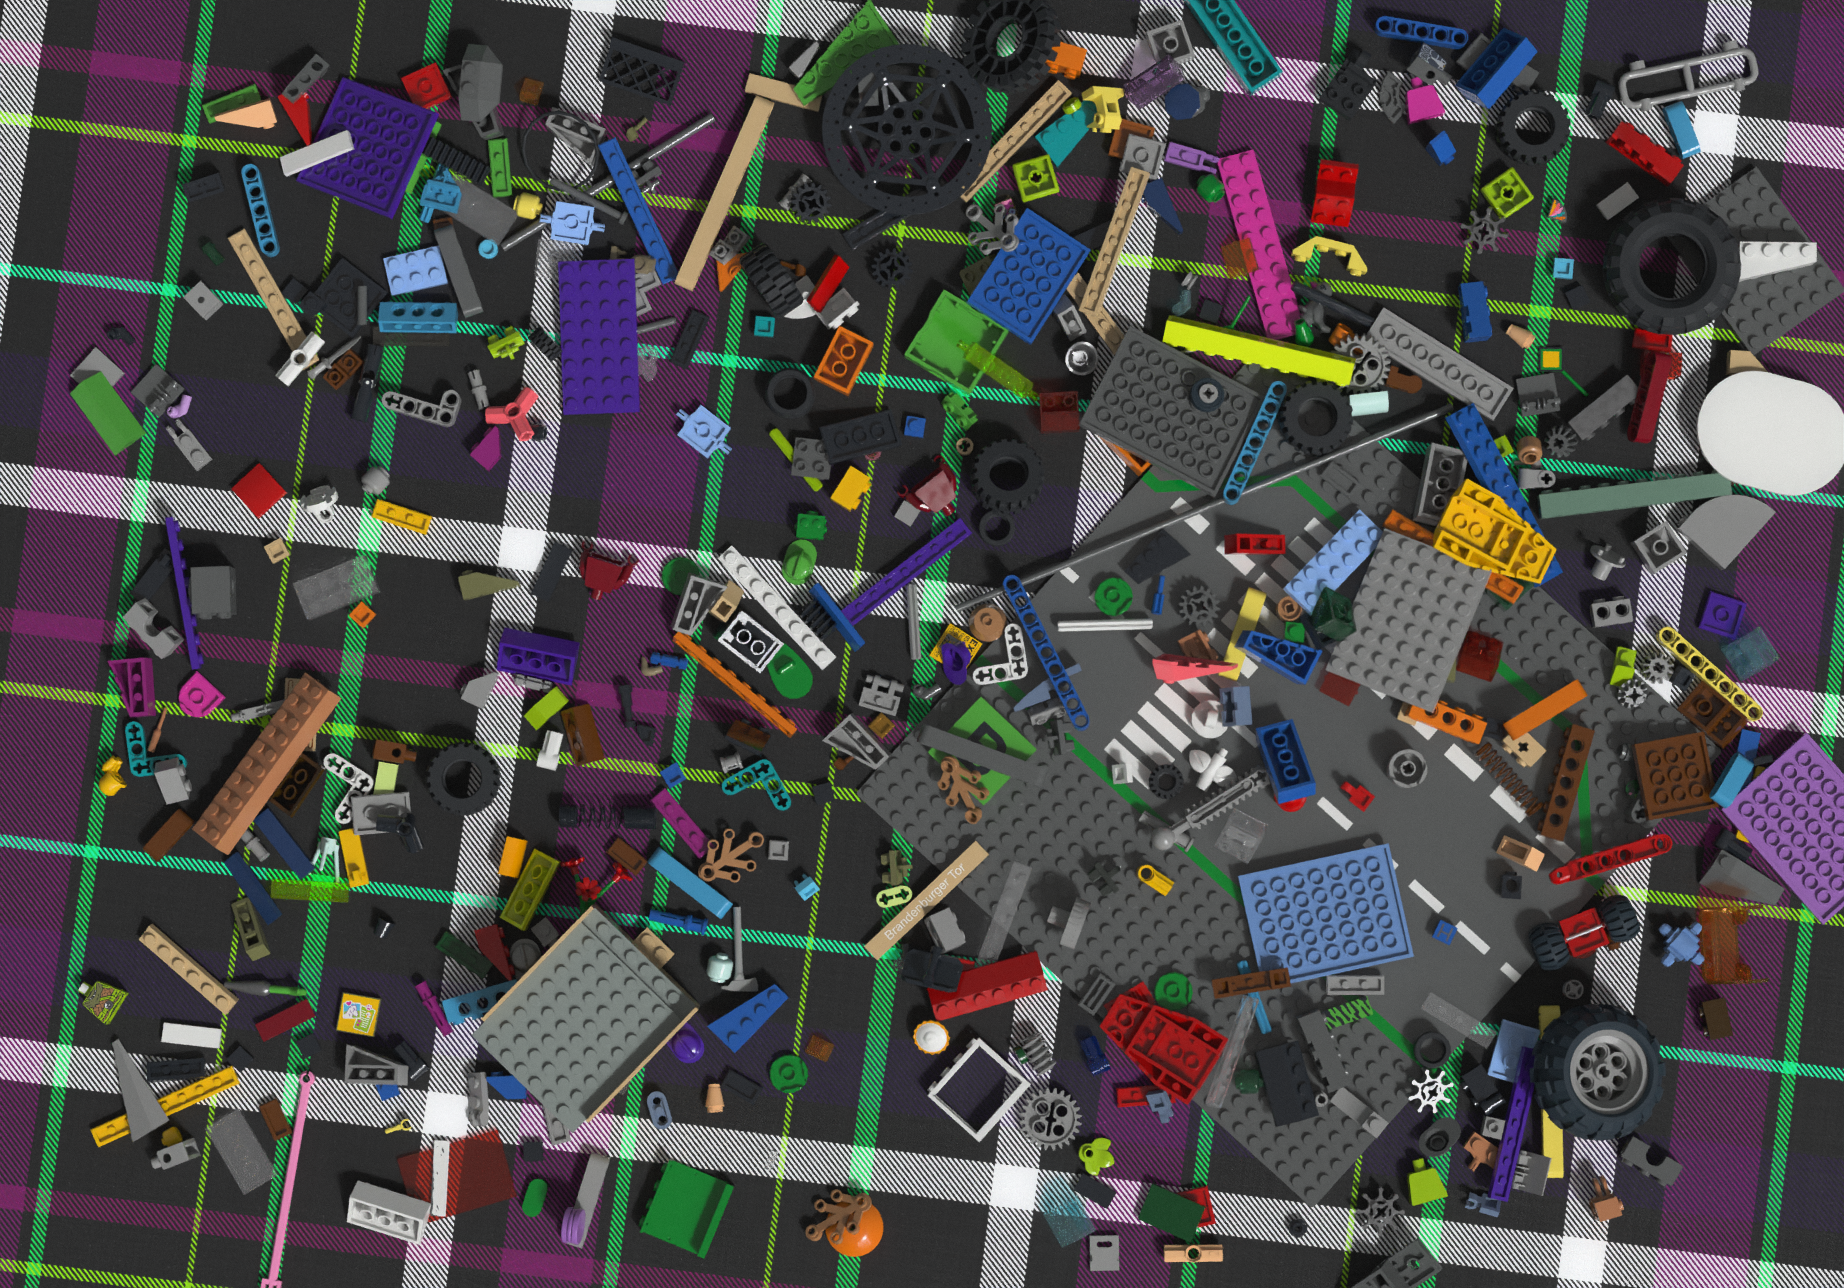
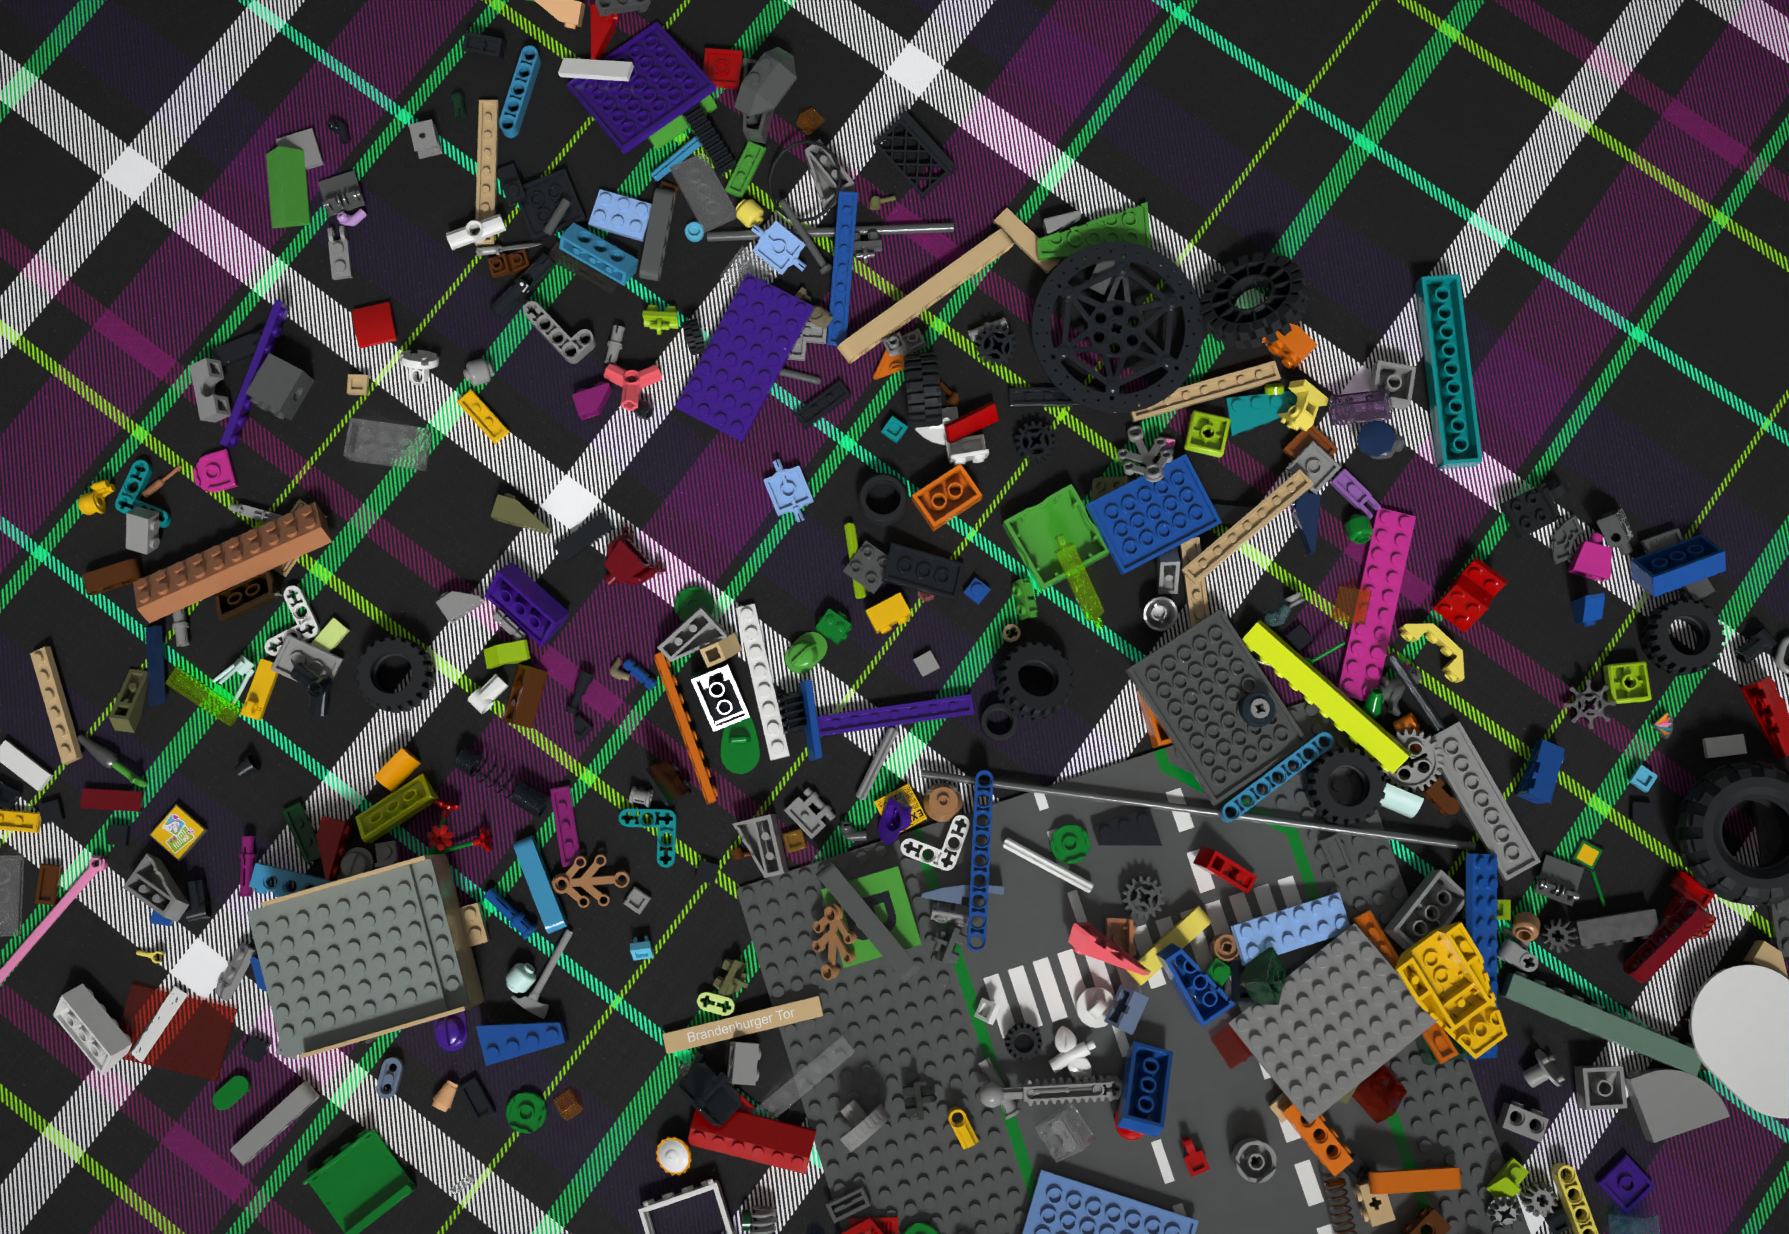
camera: 30 degrees right, 5 degrees down
(136, 685) = (164, 431): magenta wedge -> none
(284, 843) = (207, 642): dark blue tile -> none
(362, 615) = (397, 481): orange plate -> none
(383, 751) = (341, 610): reddish brown torso -> none
(442, 193) = (681, 161): dark azure slope -> none
(573, 1225) = (242, 1142): medium lavender head -> none
(627, 856) = (499, 827): reddish brown tile -> none
(647, 367) = (772, 407): clear plate -> none
(673, 775) = (582, 778): blue plate -> none
(934, 491) = (961, 657): dark red torso -> none
(1059, 412) = (1113, 650): clear red slope -> none
(1158, 597) = (1110, 868): blue axle -> none
(1430, 30) = (1632, 498): blue beam -> none
(1521, 336) = (1571, 818): light nougat cone -> none

